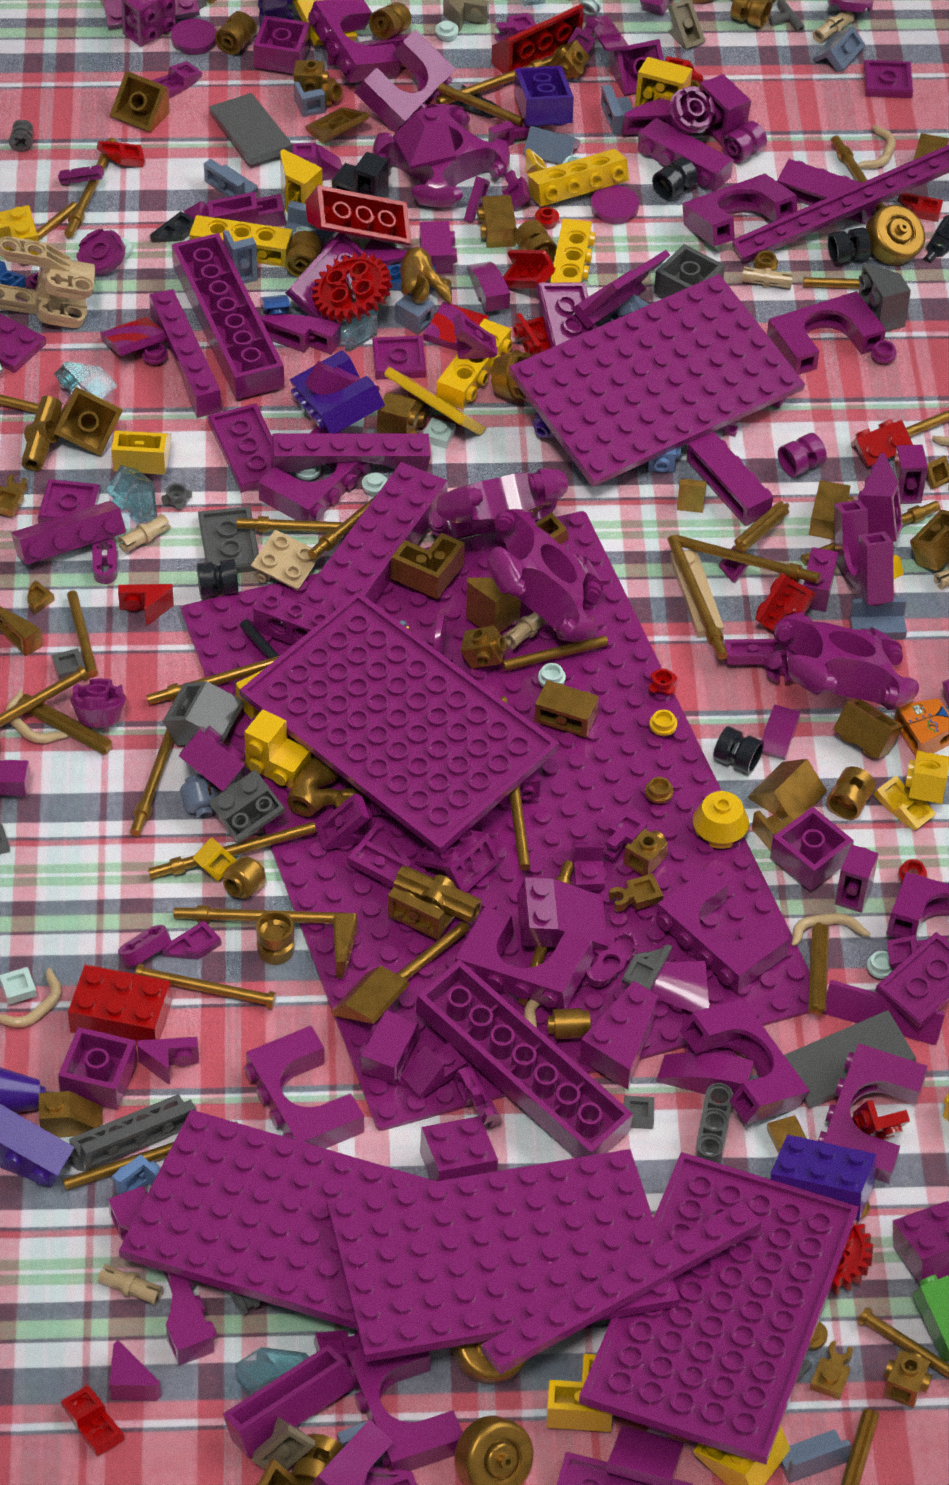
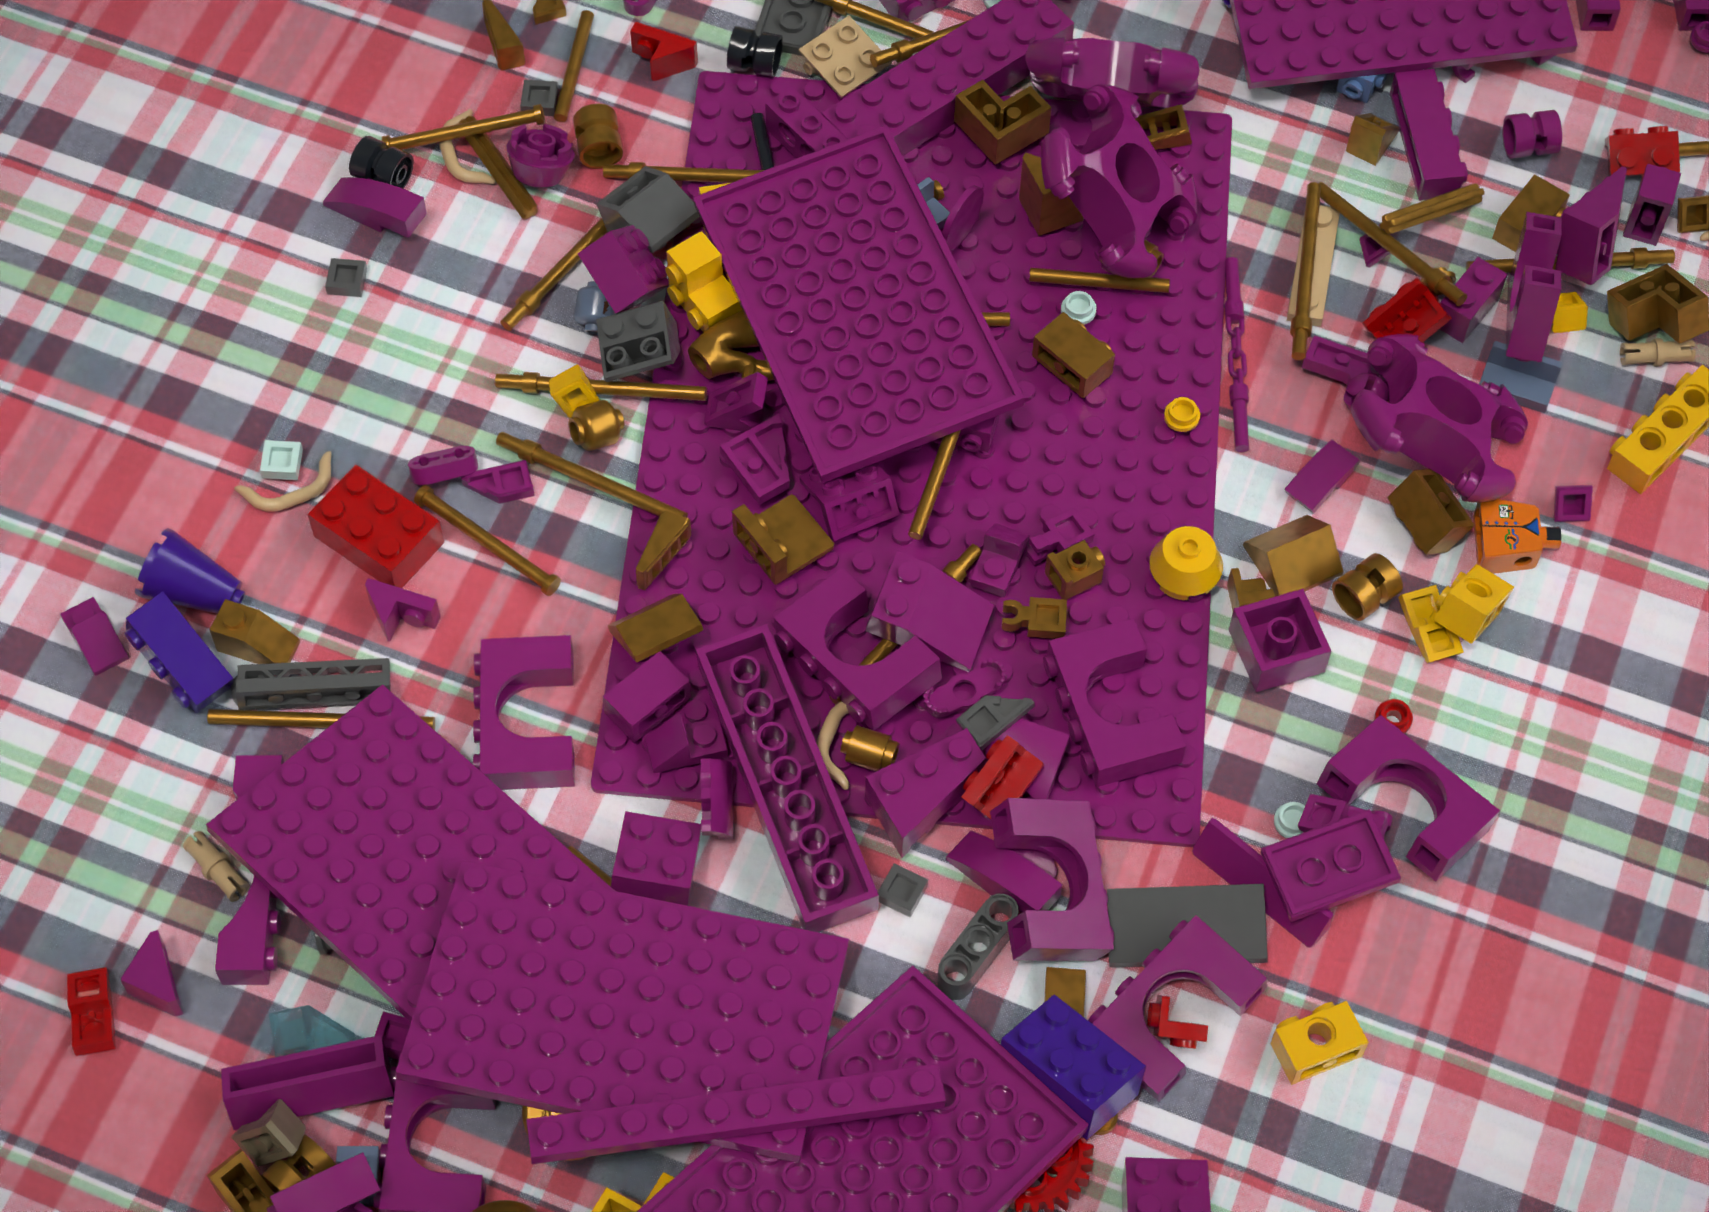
camera: 25 degrees right, 10 degrees up
(98, 1067) = (310, 593): magenta brick -> none
(133, 674) = (597, 135): none -> pearl gold wheel
(135, 1174) = (283, 737): medium blue bracket -> none
(275, 937) = (590, 511): pearl gold wheel -> none
(434, 950) = (757, 599): pearl gold bar -> none
(438, 891) = (797, 530): pearl gold piece -> none
(483, 647) = (1012, 243): pearl gold brick -> none
(526, 628) = (1078, 237): tan pin -> none
(659, 790) = (1132, 497): pearl gold plate -> none
(662, 682) = (1212, 355): red plate -> none
(676, 1006) = (1004, 776): none -> red bracket
(691, 696) = (1238, 391): none -> magenta piece
(747, 753) = (1253, 477): black wheel -> none
(818, 969) = (1210, 796): pearl gold axle -> none
(827, 919) = (1251, 735): tan animal -> none
(856, 878) = (1313, 699): magenta brick -> none

